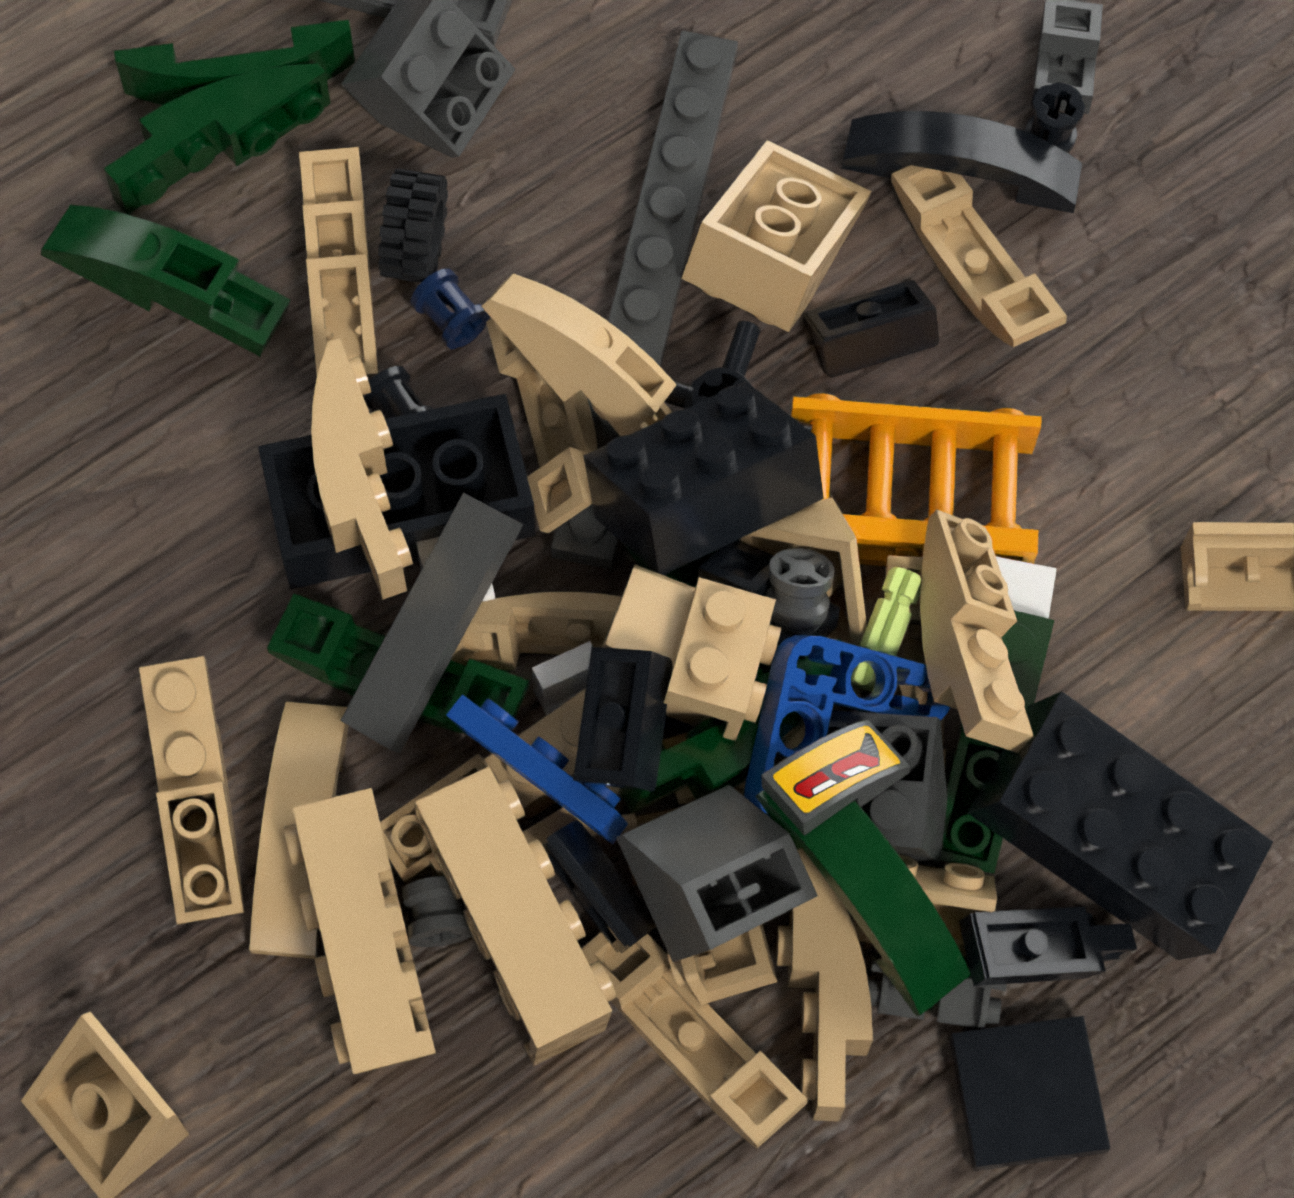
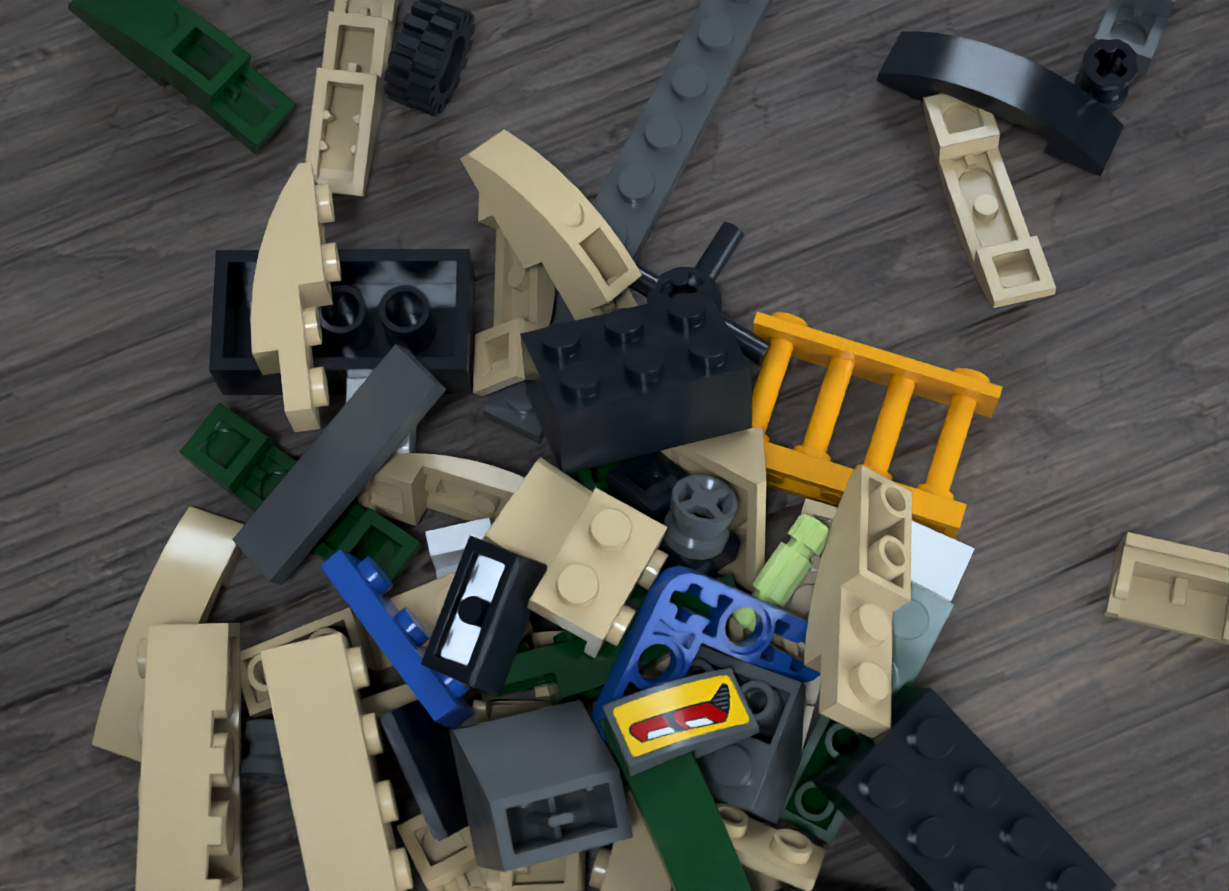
camera: 20 degrees right, 5 degrees up
(192, 791) = (76, 578): tan slope -> none
(393, 394) = (369, 223): black bush -> none
(457, 326) = (446, 162): dark blue bush -> none
(774, 235) = (789, 136): tan slope -> none
(872, 328) = (863, 253): black slope -> none

